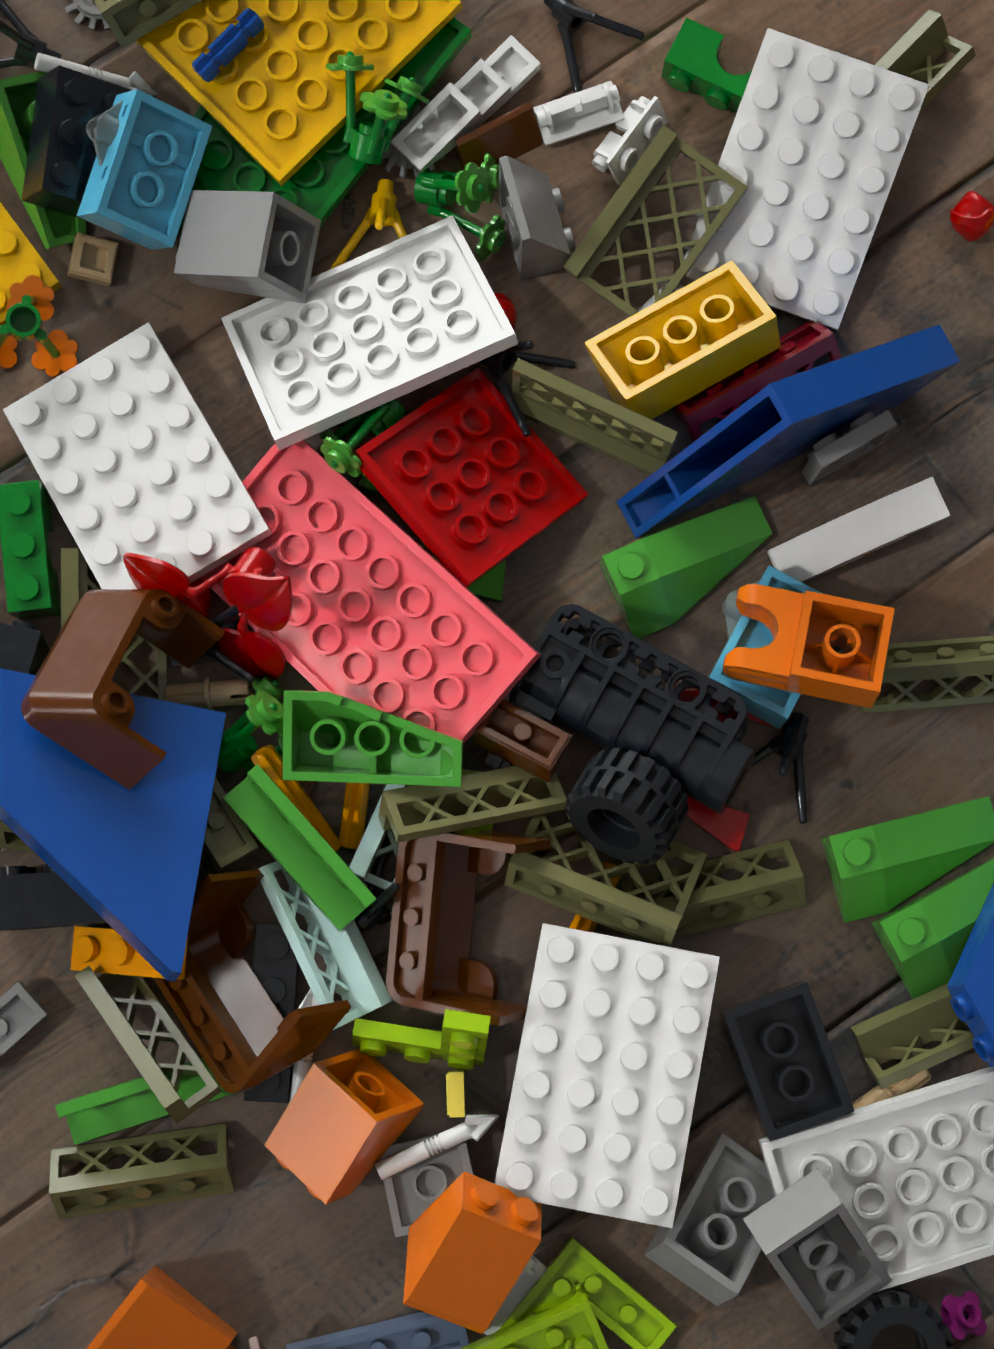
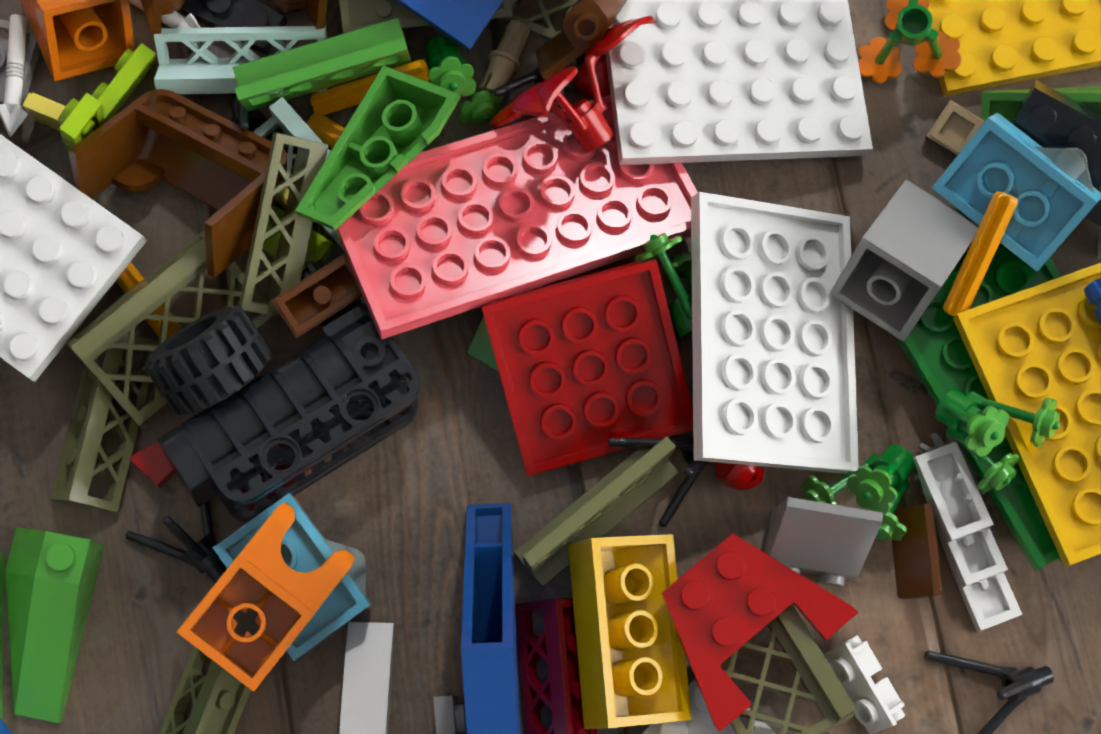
camera: 115 degrees right, 5 degrees down
(213, 178) = (980, 253): none -> light orange axle
(381, 213) = (891, 409): yellow plant -> none
(579, 113) = (913, 644): white hinge -> none
(623, 267) = (728, 602): none -> red wing
(675, 568) = (418, 528): bright green wedge -> none

